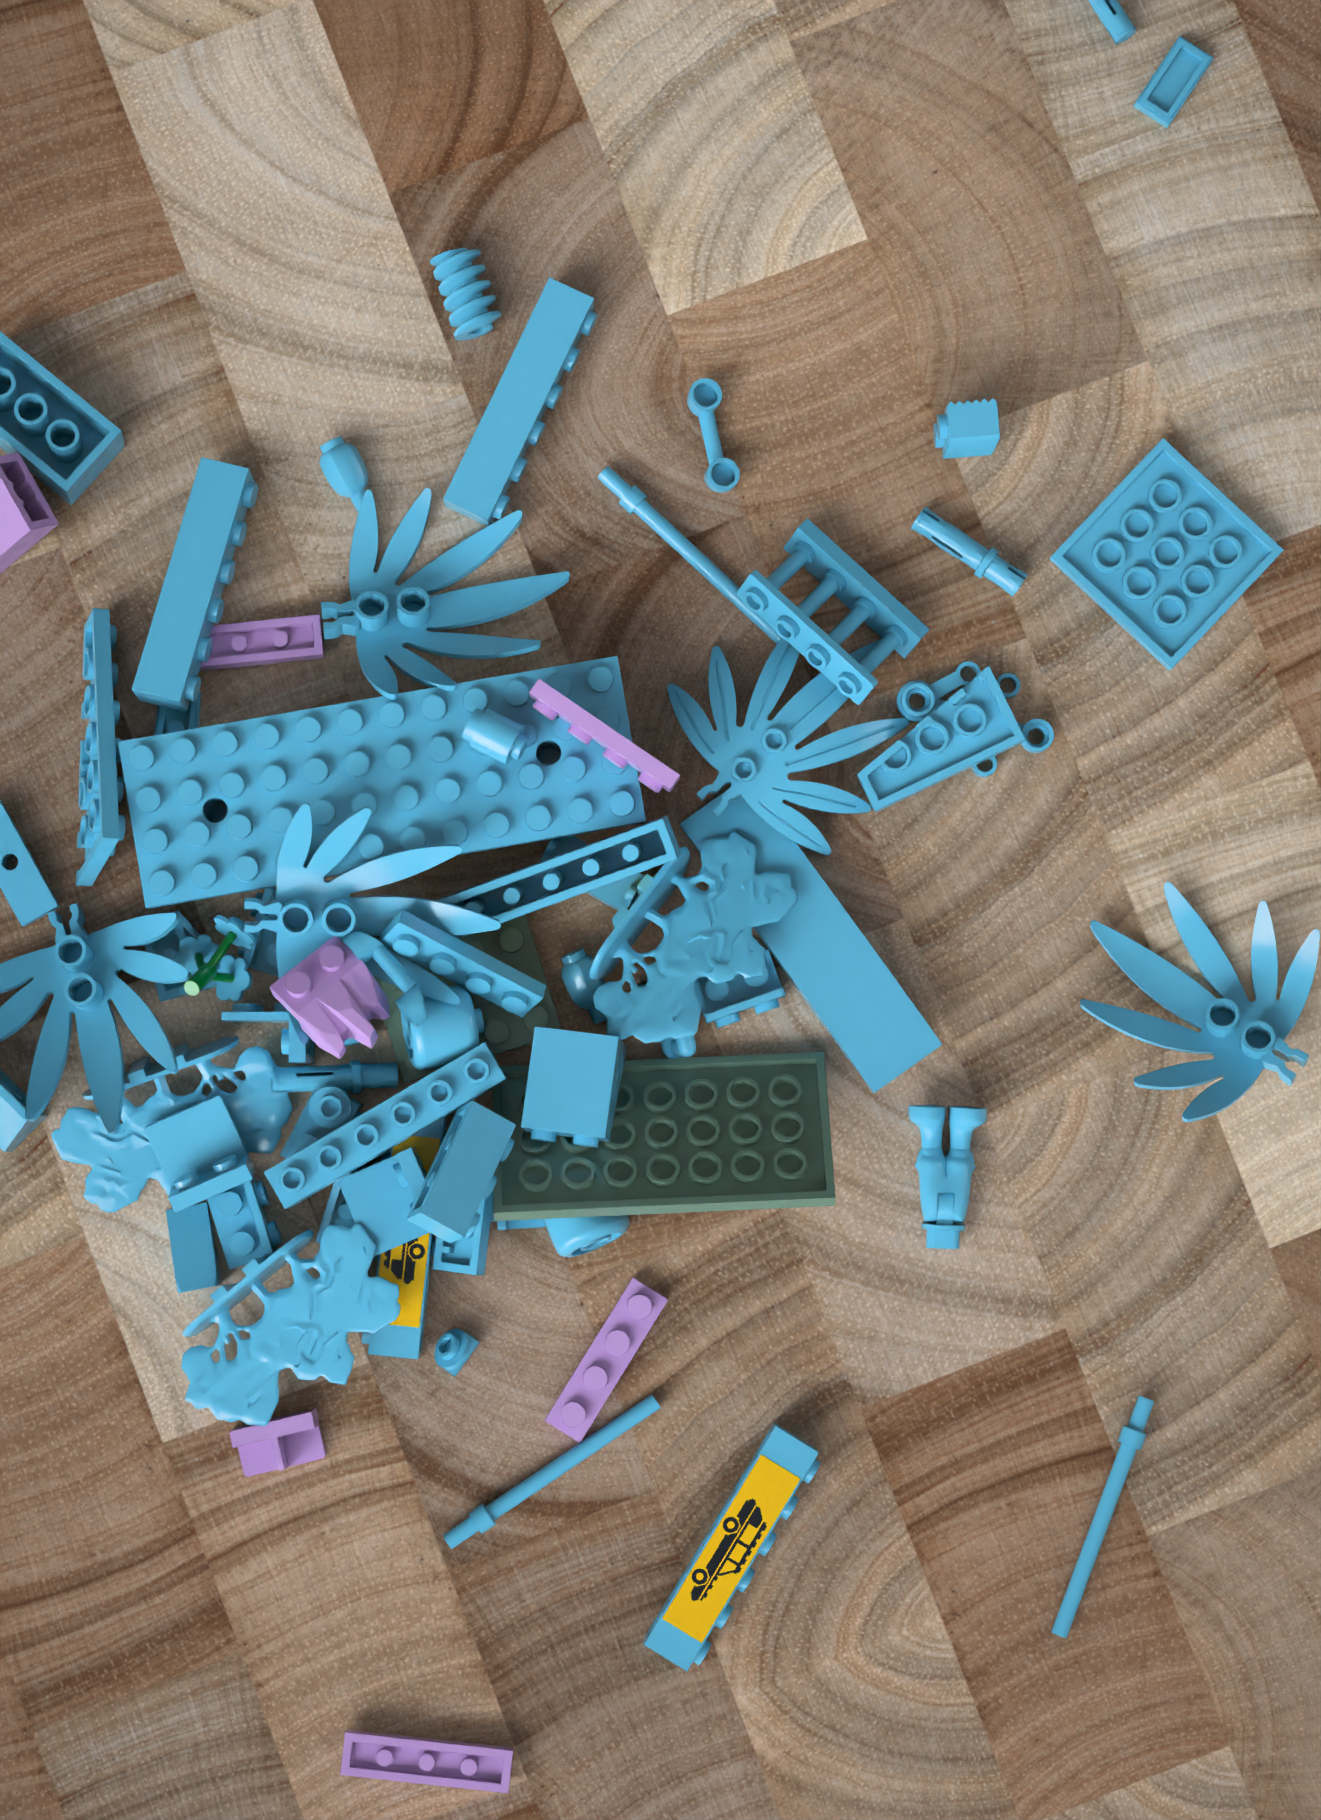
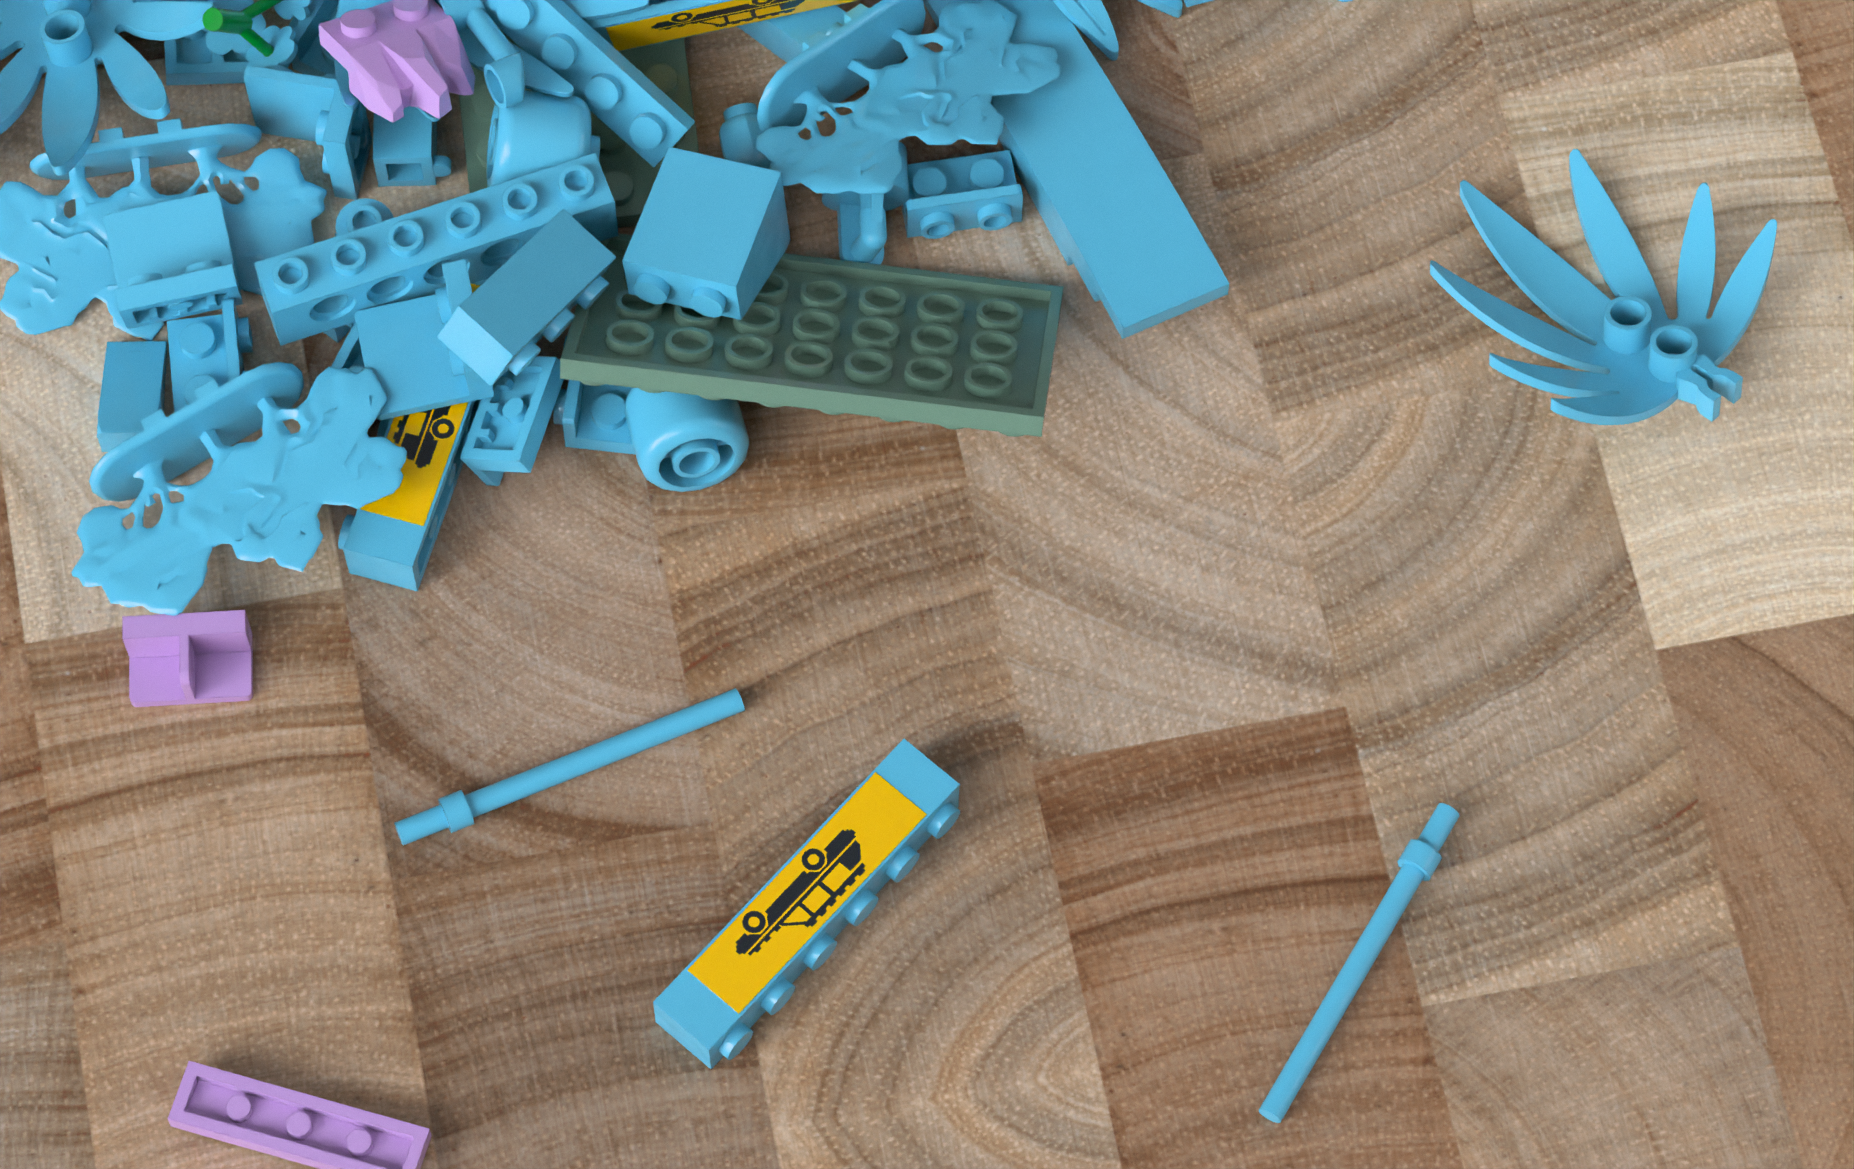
camera: 10 degrees right, 20 degrees down
(348, 1076) = (335, 192): medium azure pin -> none
(454, 1350) = (467, 584): medium azure plate -> none
(606, 1360) = (679, 633): lavender plate -> none
(942, 1178) = (1203, 475): medium azure piece -> none

